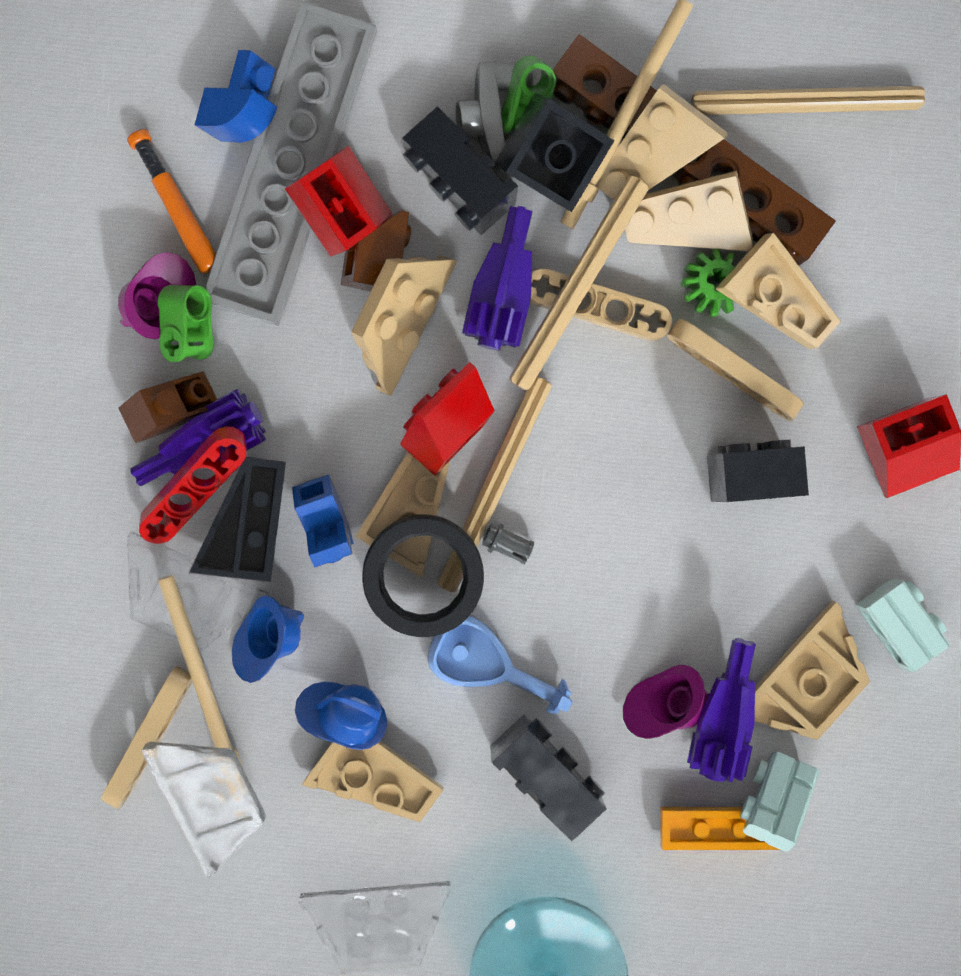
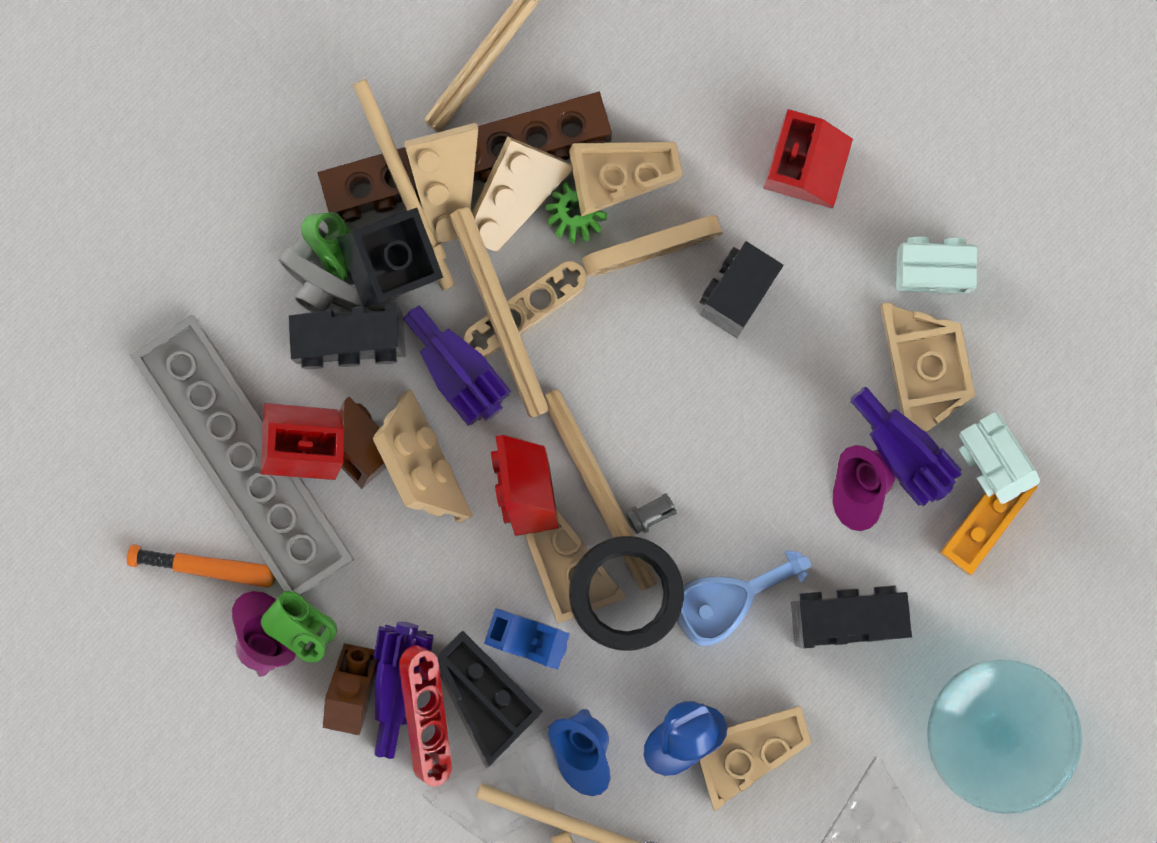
camera: 50 degrees left, 5 degrees down
(242, 108) = (176, 460): blue brick -> none

